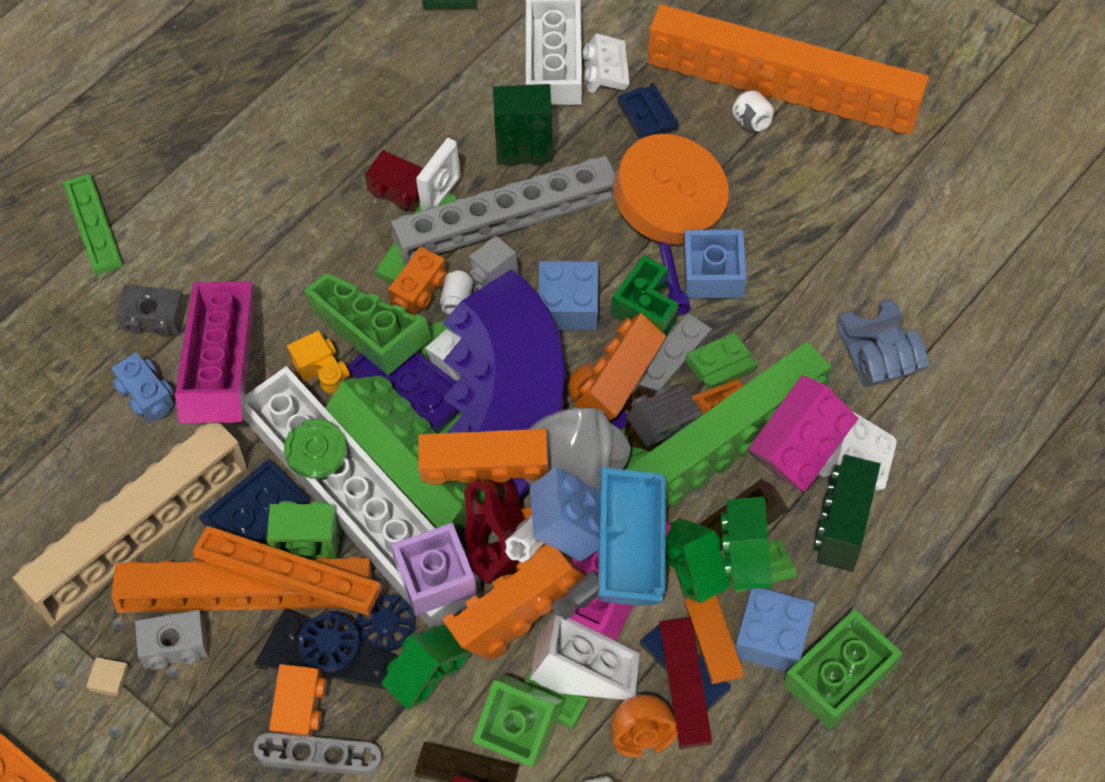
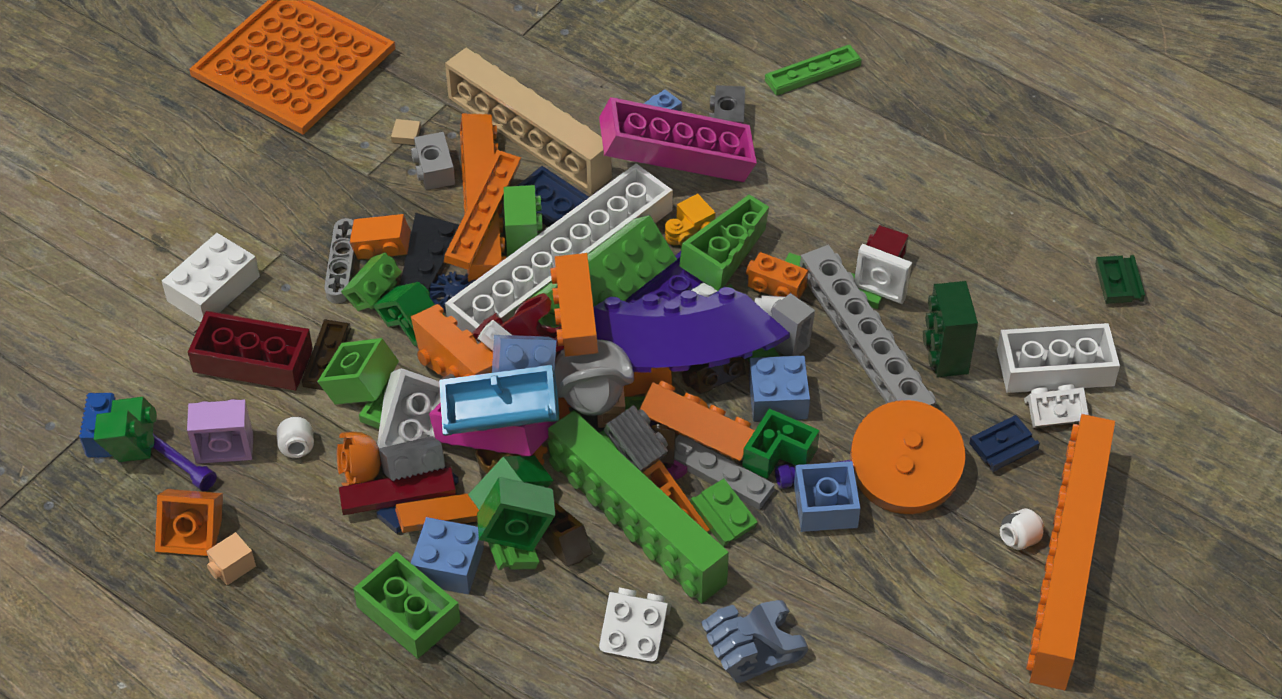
camera: 85 degrees right, 10 degrees down
(315, 449) = (592, 214): bright green tile -> none
(329, 642) = (427, 250): dark blue wheel -> none
(368, 711) = (372, 281): none -> bright green brick
(434, 569) = (477, 289): lavender brick -> none
(651, 659) = (412, 458): none -> flat silver brick
(803, 433) = (634, 558): dark pink brick -> none
(846, 512) = (559, 604): dark green brick -> none

